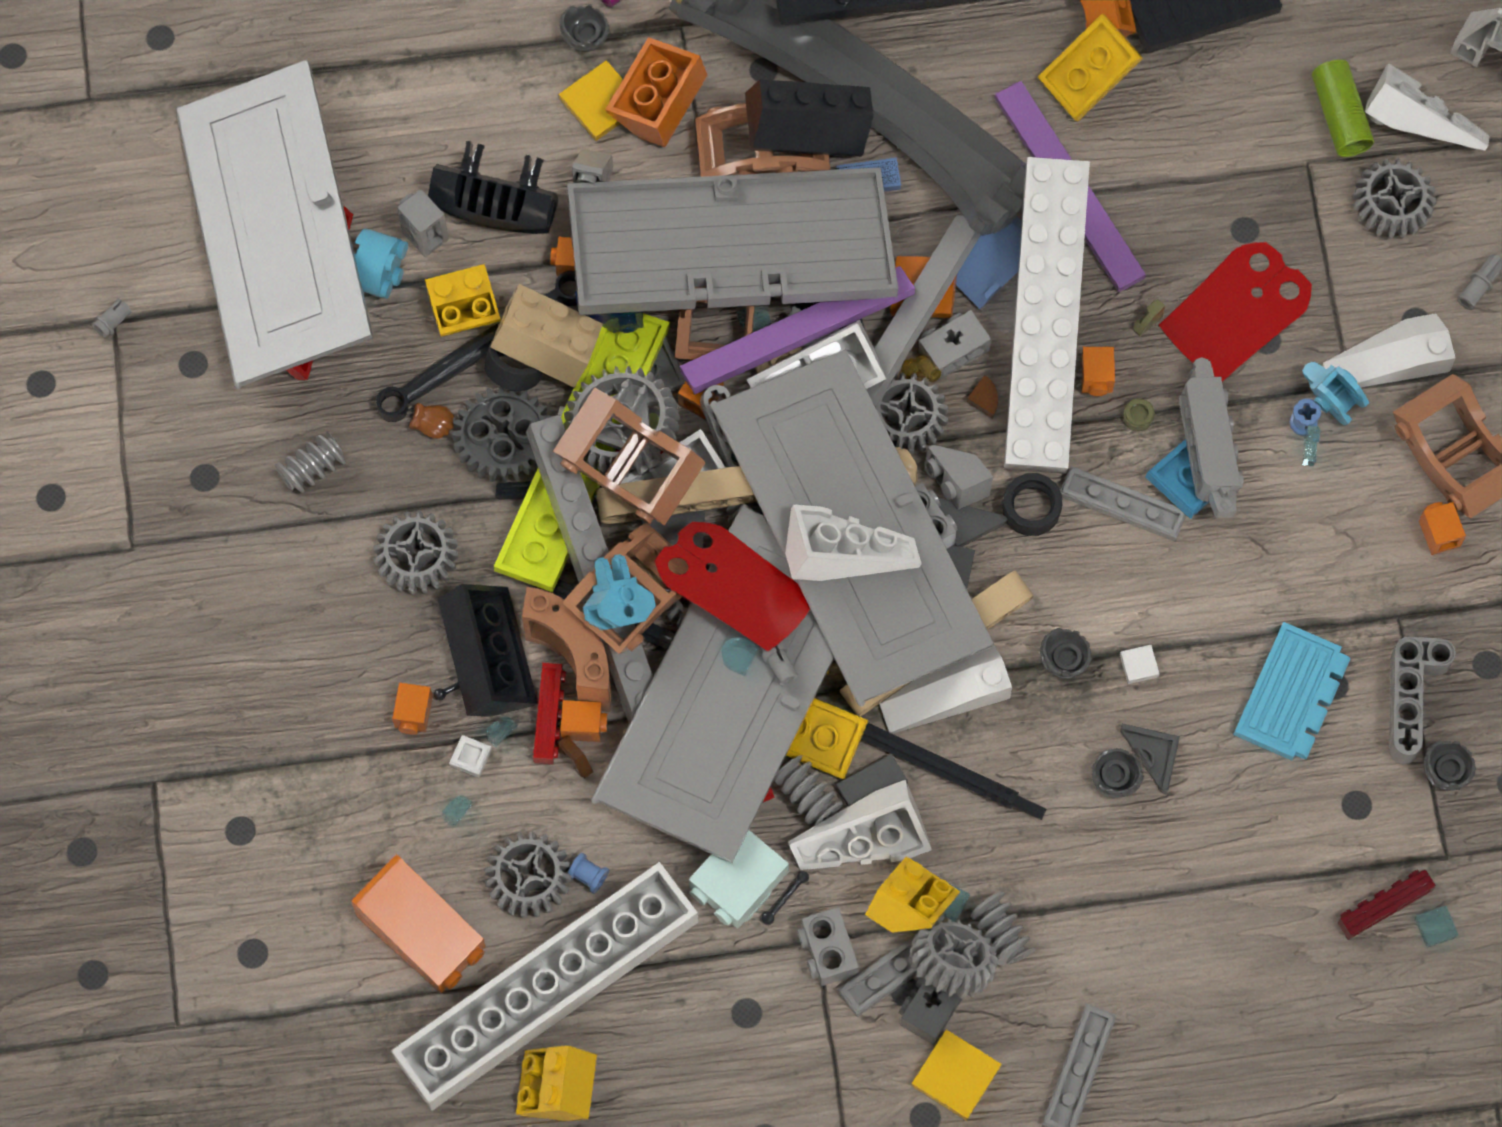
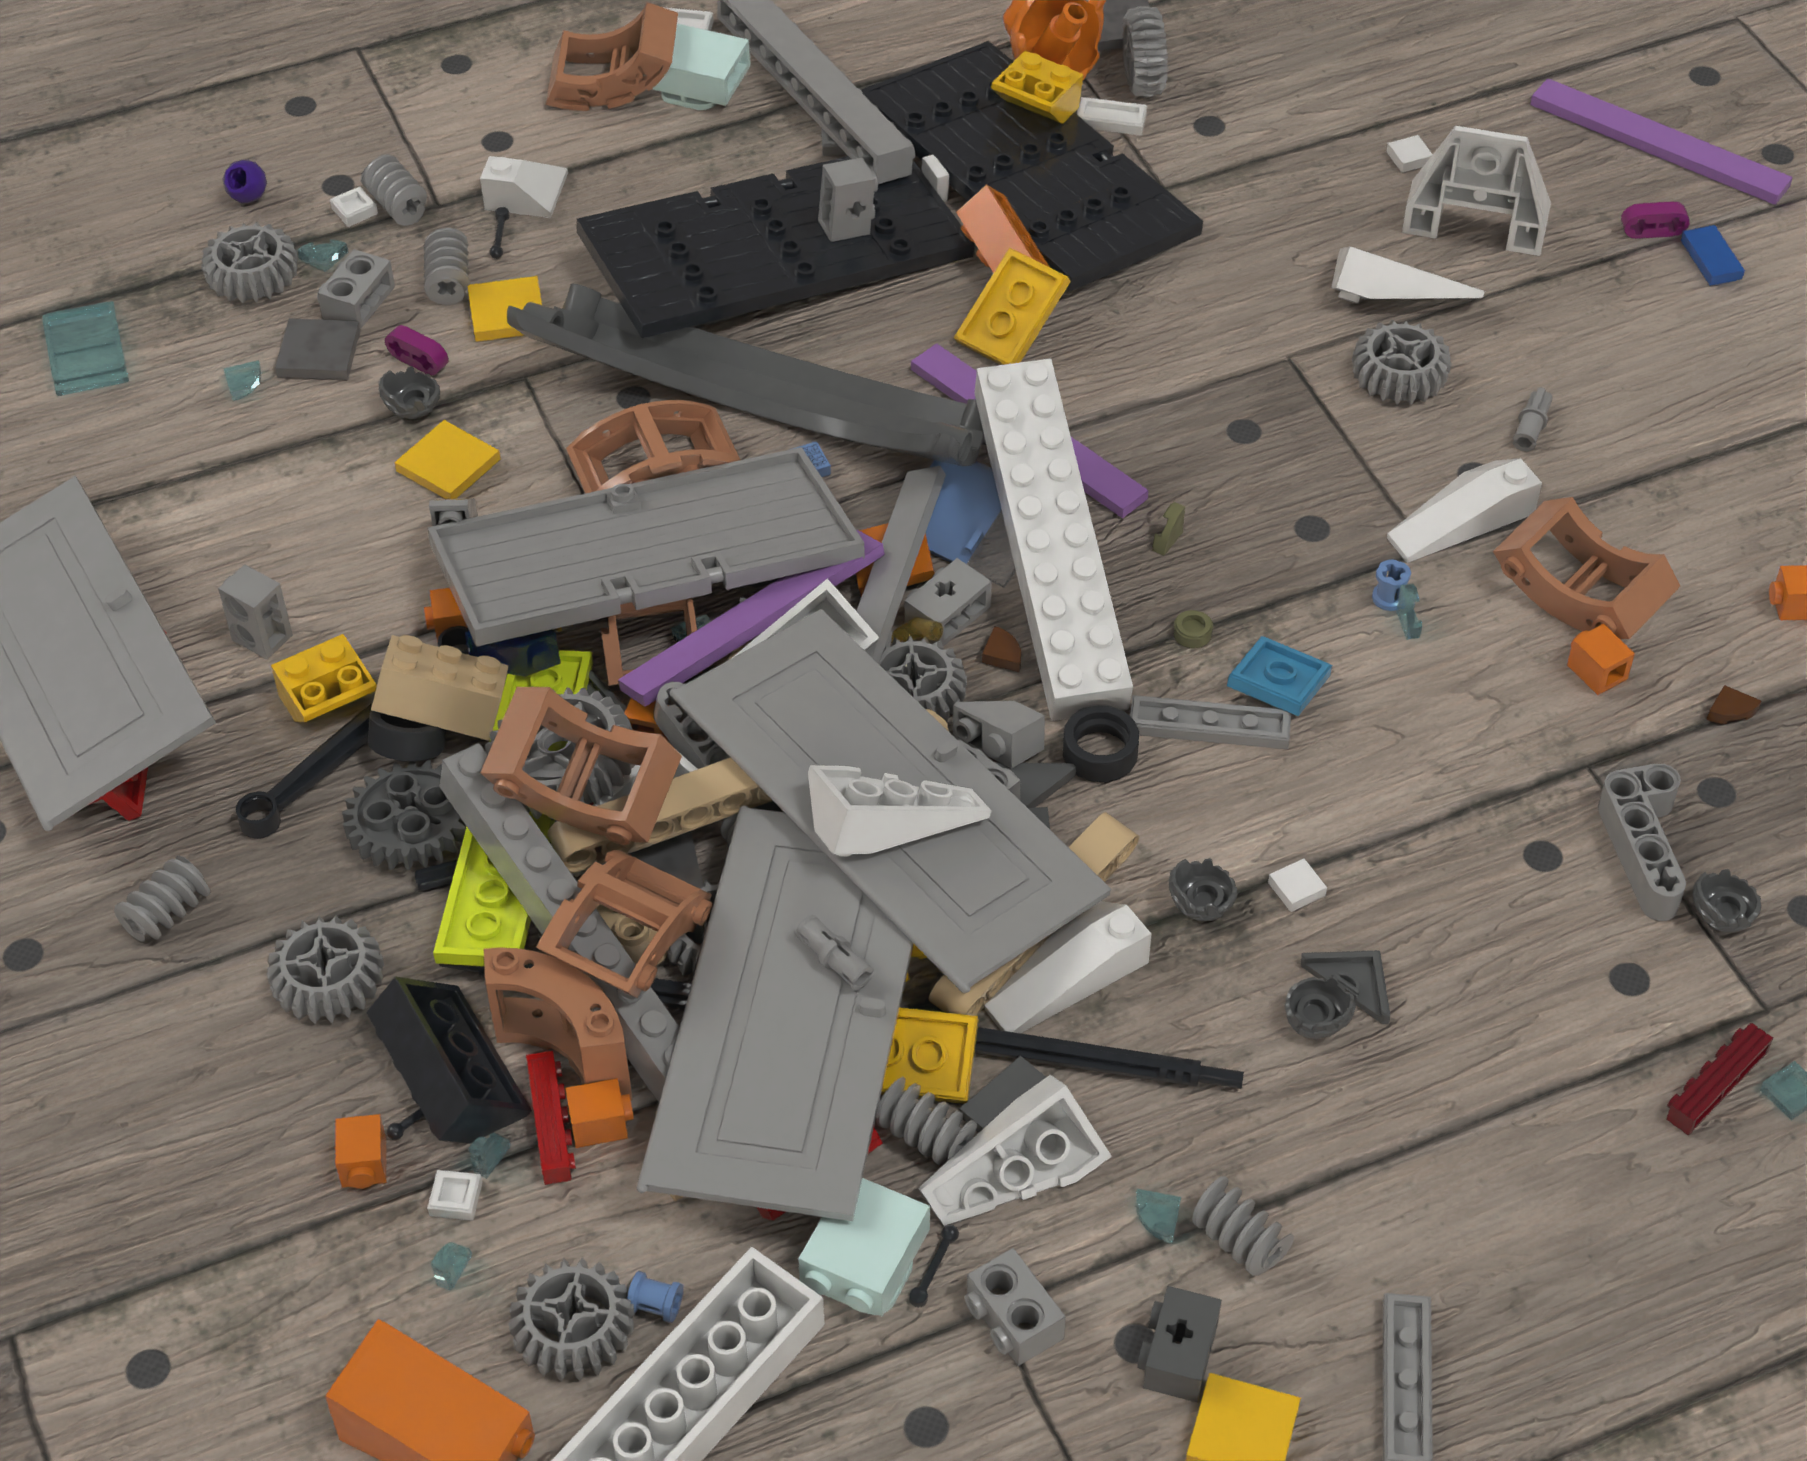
camera: 15 degrees left, 20 degrees down
(379, 262) = (211, 660): medium azure brick -> none
(432, 420) = (314, 822): dark orange animal -> none
(494, 201) = (342, 573): black piece -> none
(577, 756) = (603, 1155): reddish brown tile -> none
(617, 600) = (609, 919): medium azure hinge -> none
(657, 91) = (514, 430): orange slope -> none
(739, 654) = (787, 967): clear light blue tile -> none
(744, 589) = (761, 886): red piece -> none
(808, 117) = (702, 406): black slope -> none
(880, 979) = (1116, 1312): light grey tile -> none
(911, 898) = (1106, 1210): yellow slope -> none
(954, 958) = (1191, 1267): light grey gear -> none
(1097, 370) = (1130, 590): orange brick -> none
(1210, 439) = (1291, 627): light grey hinge -> none
(1226, 320) = (1253, 521): red piece -> none
(1289, 691) = (1498, 874): medium azure hinge -> none
(1335, 390) = (1419, 546): medium azure hinge -> none
(1342, 108) = (1309, 293): lime piece -> none

